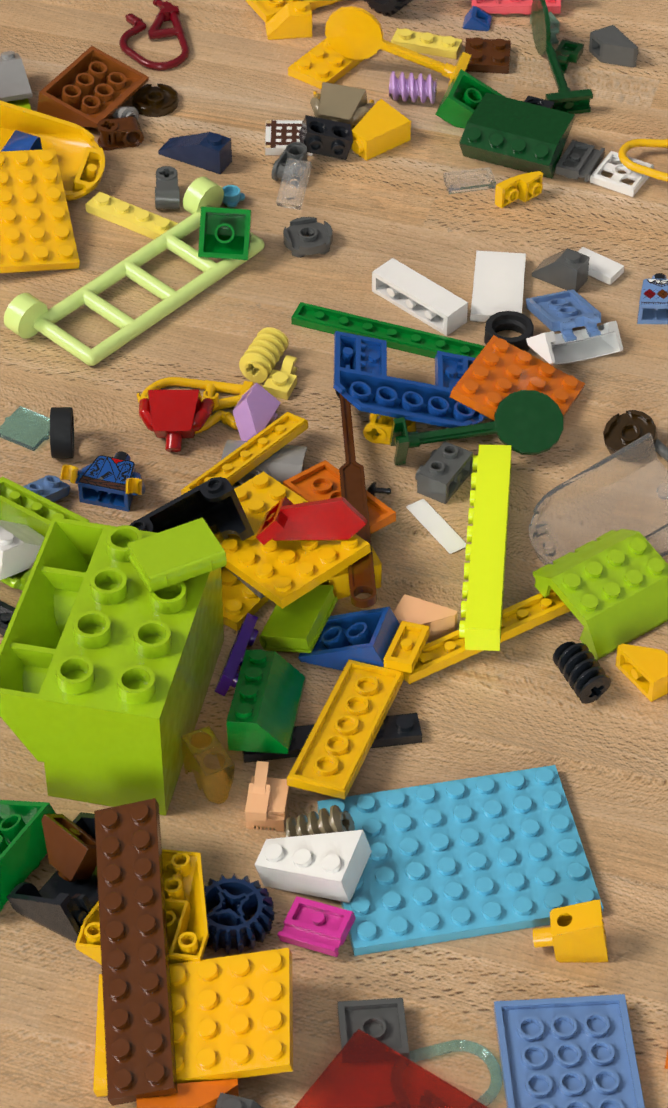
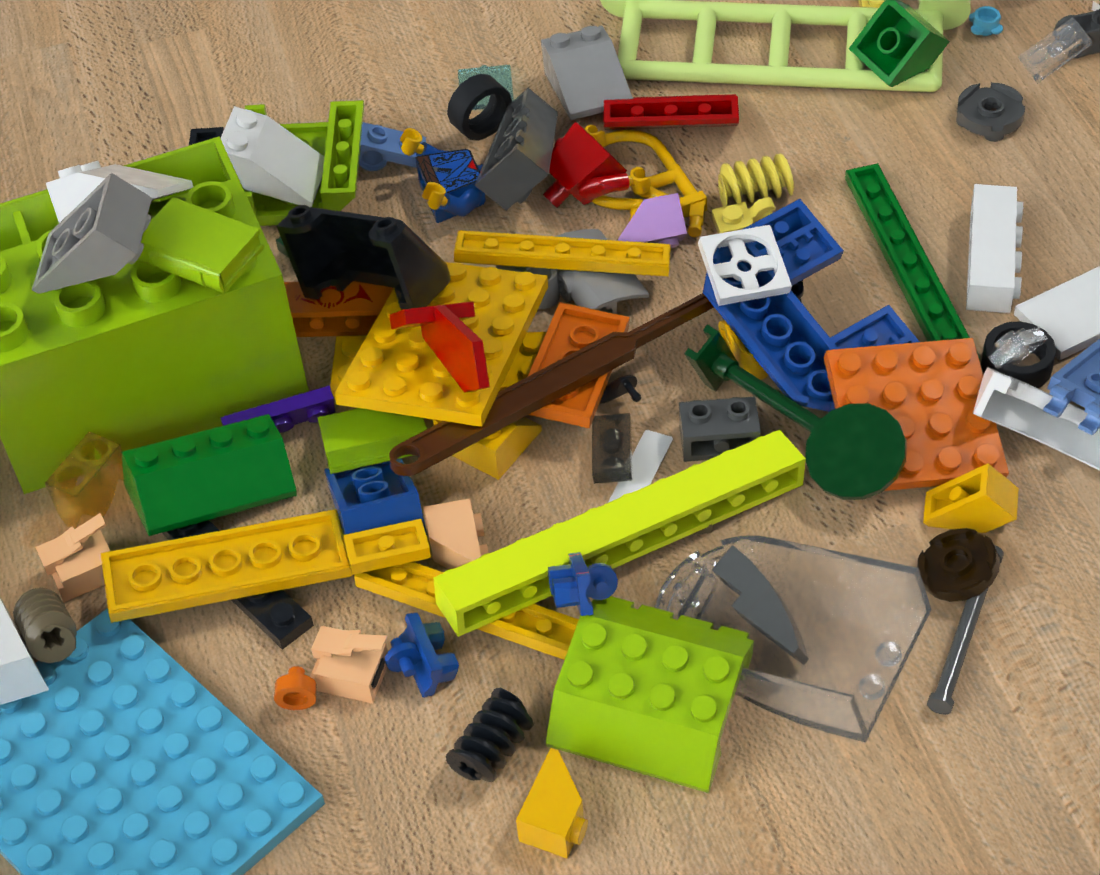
camera: 60 degrees right, 5 degrees up
(69, 581) = (80, 181): none -> white slope
(82, 373) = (584, 70): none -> light grey slope
(132, 593) = (95, 237): none -> light grey slope
(135, 433) = (519, 151): none -> dark grey wedge
(160, 357) = (671, 112): none -> red slope
(360, 390) = (735, 240): none -> white piece
(416, 523) = (612, 448): none -> clear smoke plate
(468, 742) = (295, 690): none -> orange tile
(471, 709) = (349, 663): none -> light nougat piece
(493, 675) = (416, 655): none -> blue hips
(519, 322) = (1016, 346): none -> clear plate
(528, 569) = (576, 583): none -> blue hips
(593, 407) = (972, 501): none -> yellow slope
(595, 515) = (760, 603): none -> dark grey slope

